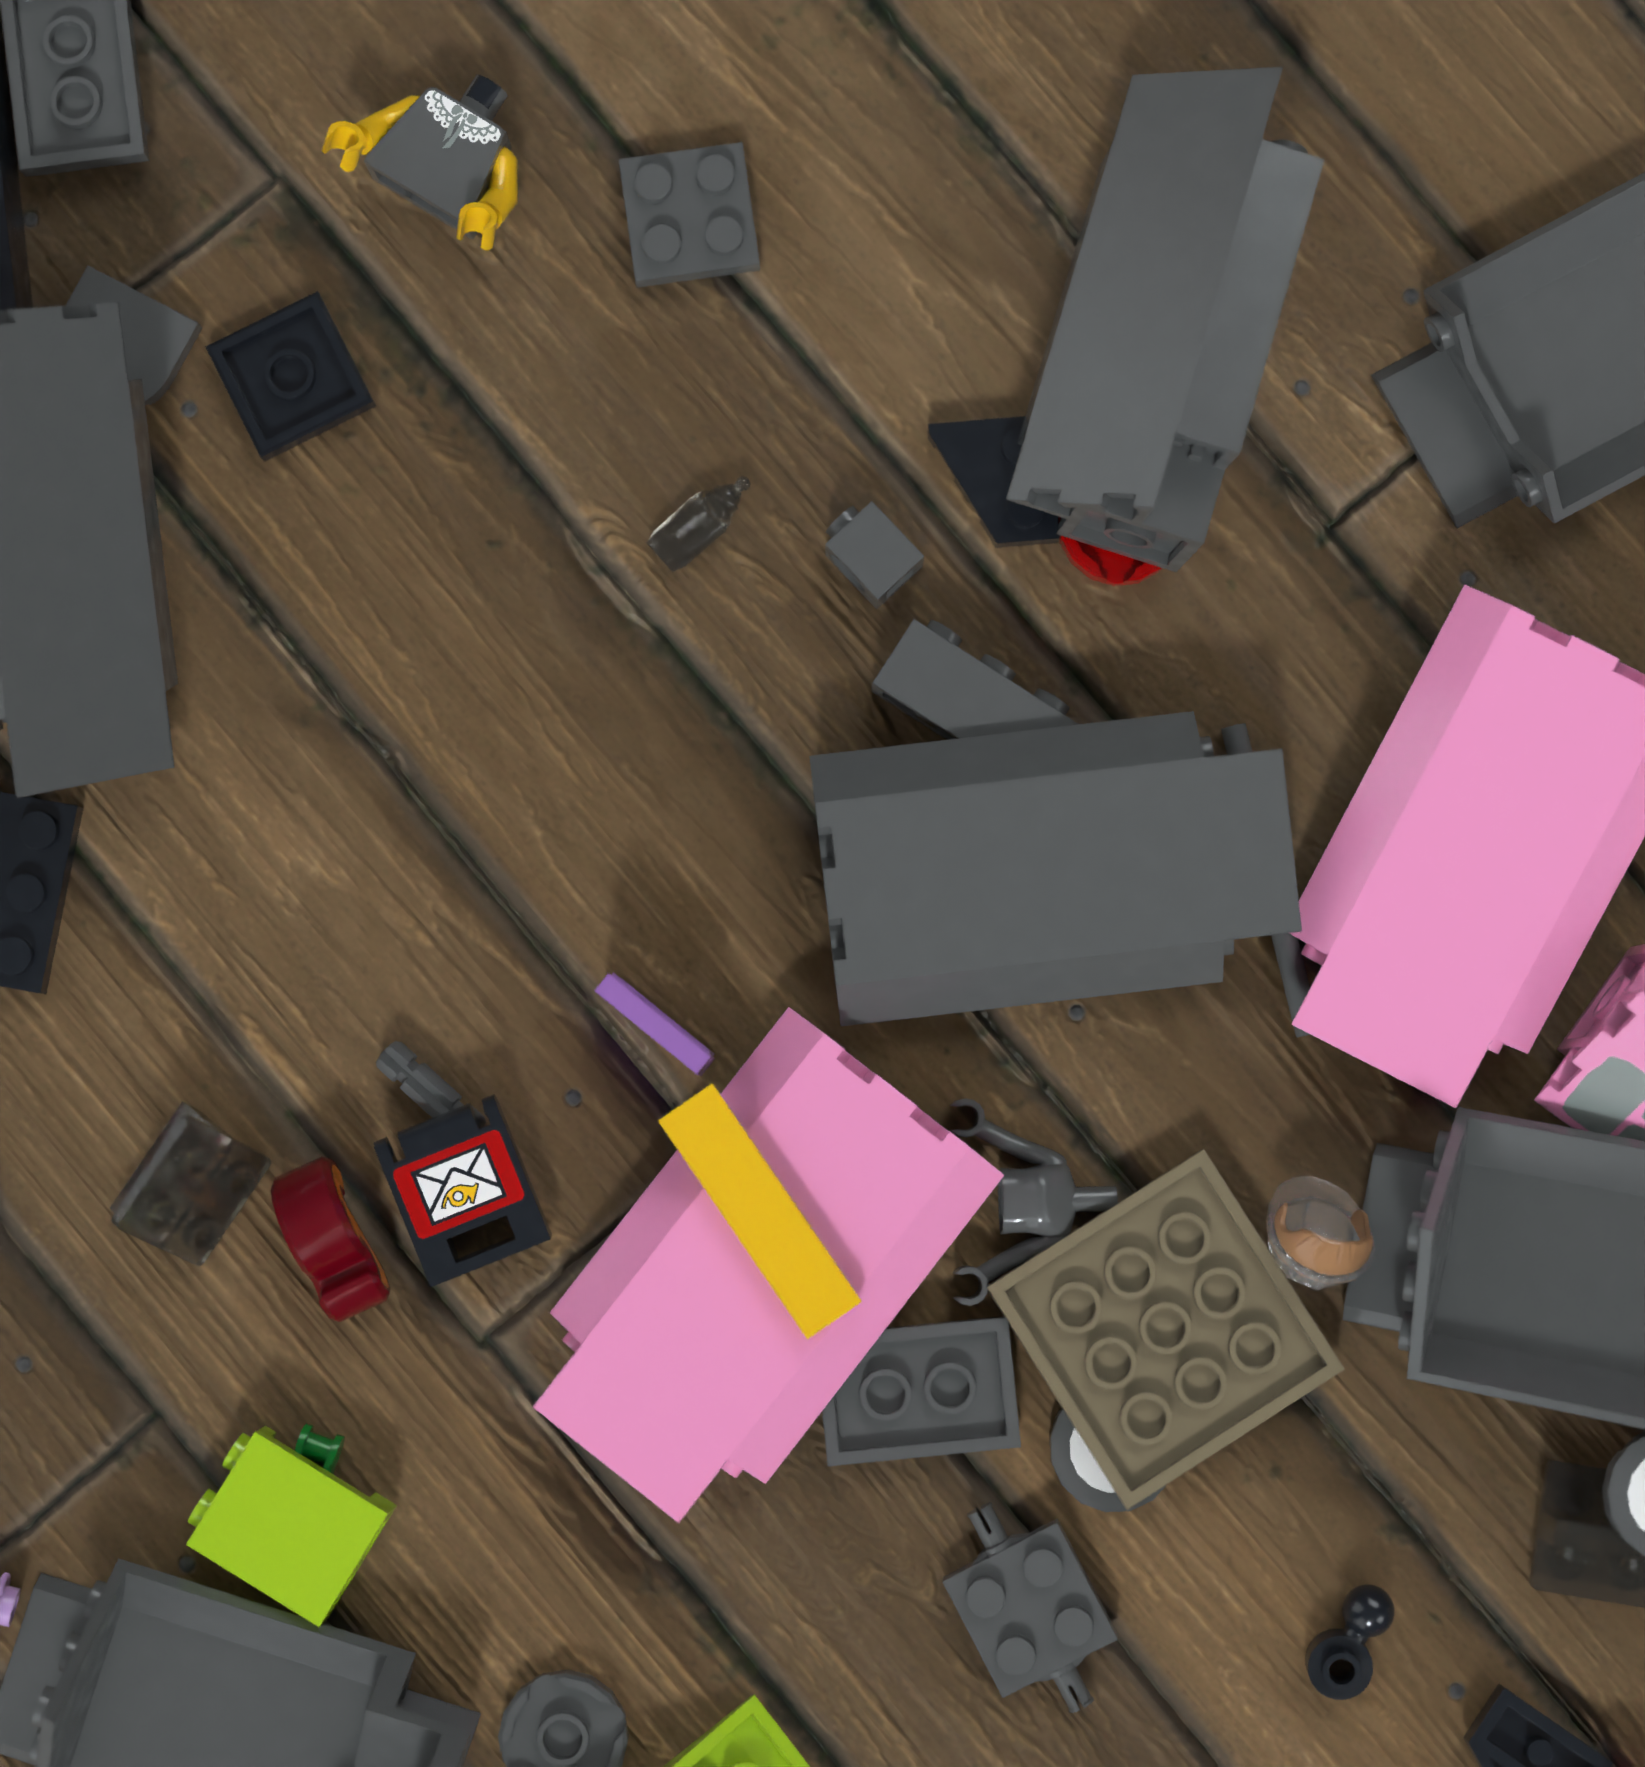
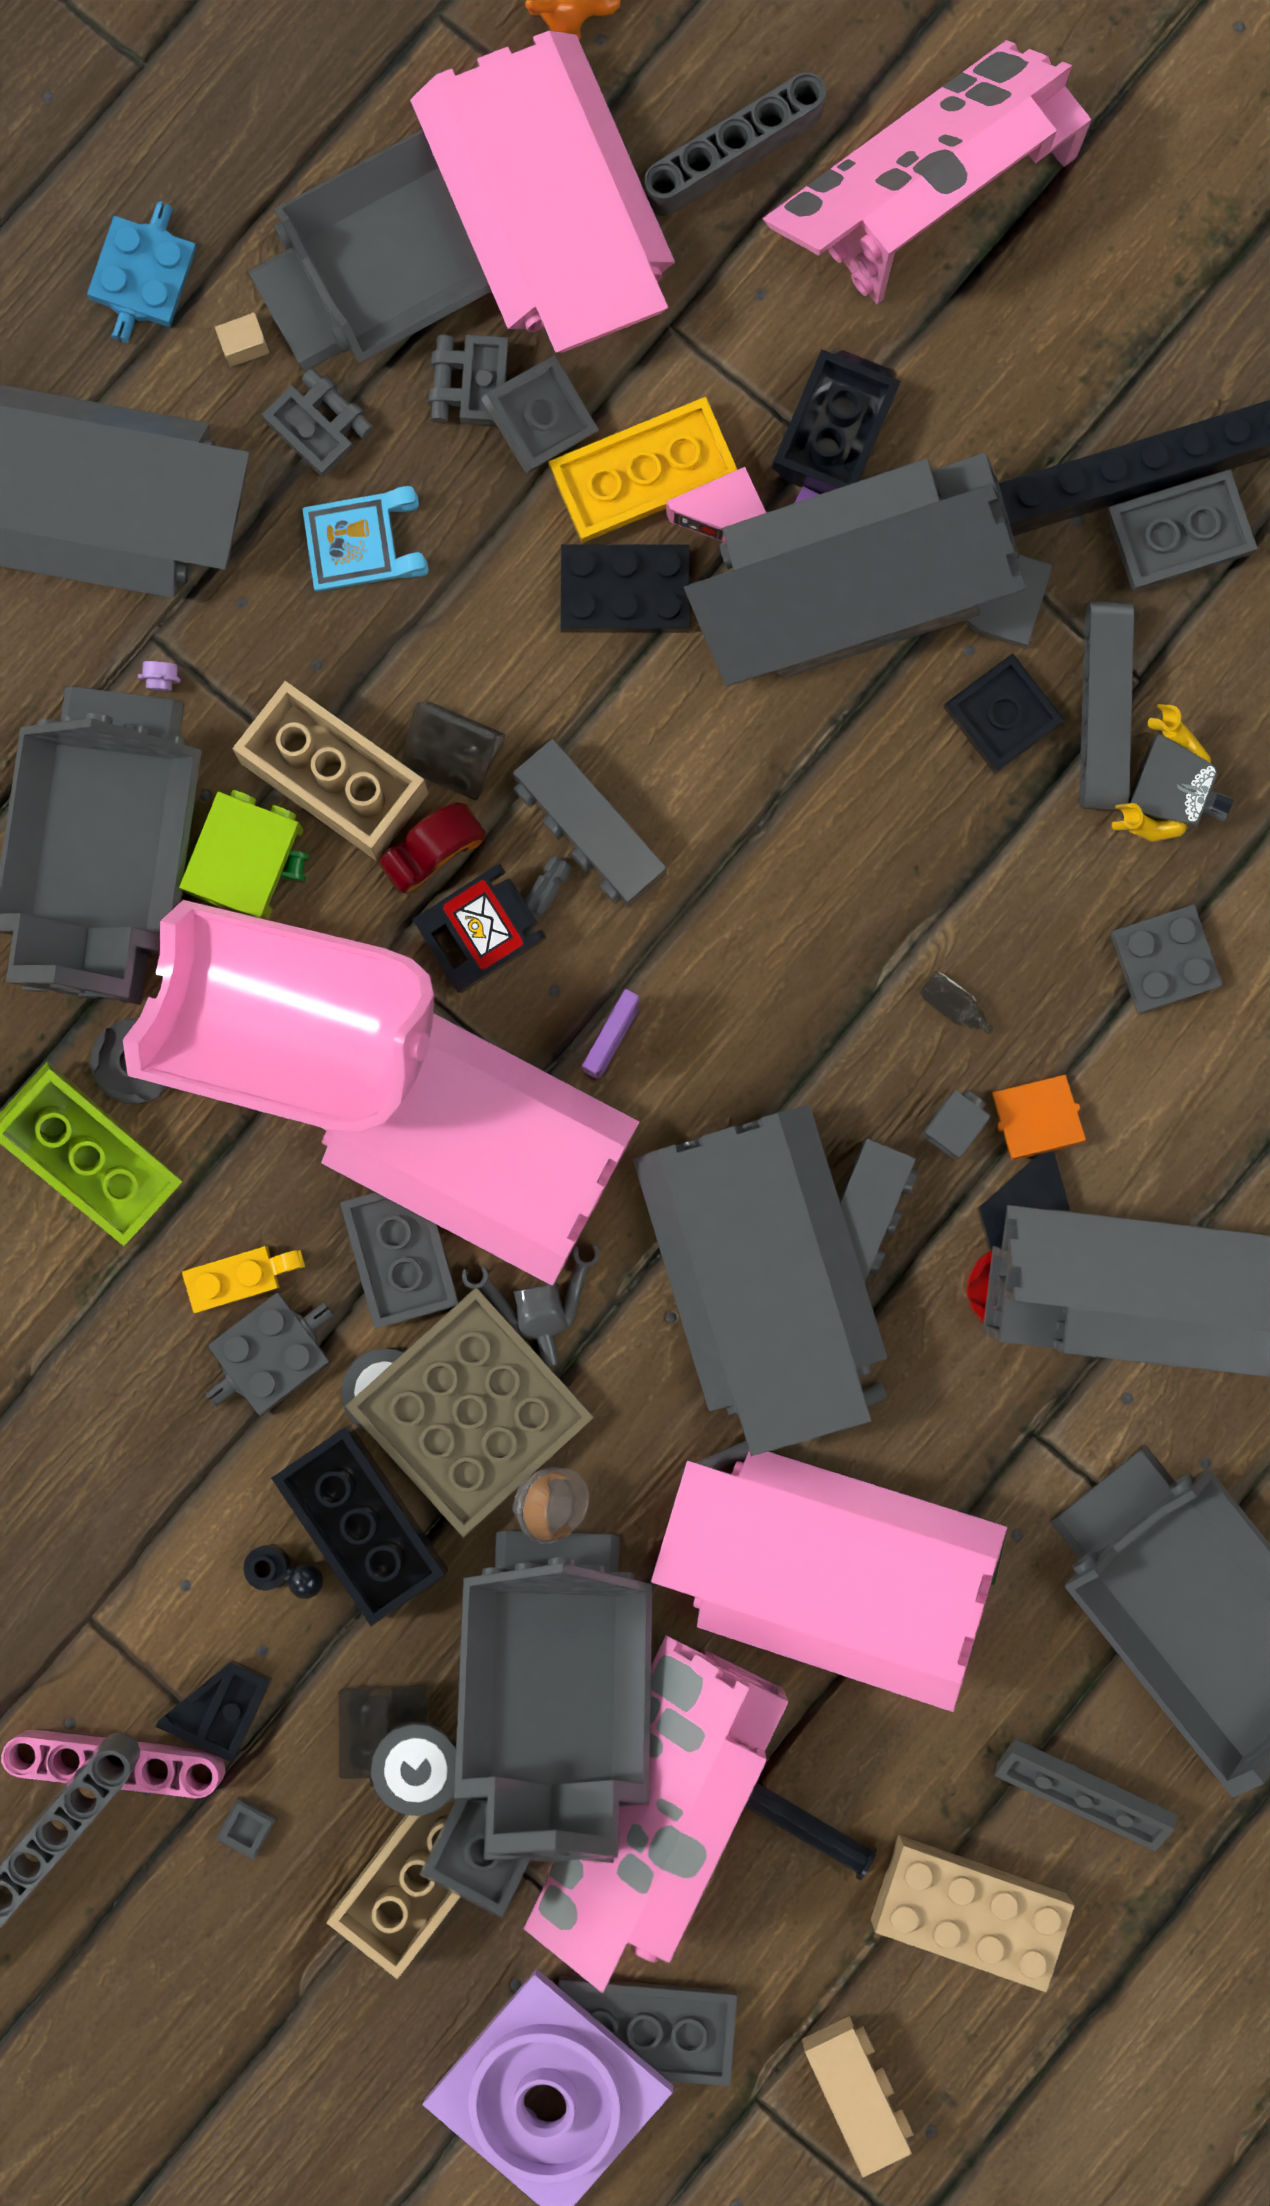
camera: 80 degrees right, 0 degrees up
(186, 1370) = (331, 770): none -> tan brick
(307, 227) = (1106, 705): none -> dark grey beam
(337, 1003) = (589, 824): none -> dark grey brick
(547, 1505) = (282, 1019): none -> bright pink panel
(760, 1211) = (499, 1124): yellow tile -> none
(883, 436) = (1038, 1117): none -> orange piece
(910, 1636) = (238, 1277): none -> yellow plate
(1303, 1516) = (360, 1524): none -> black brick

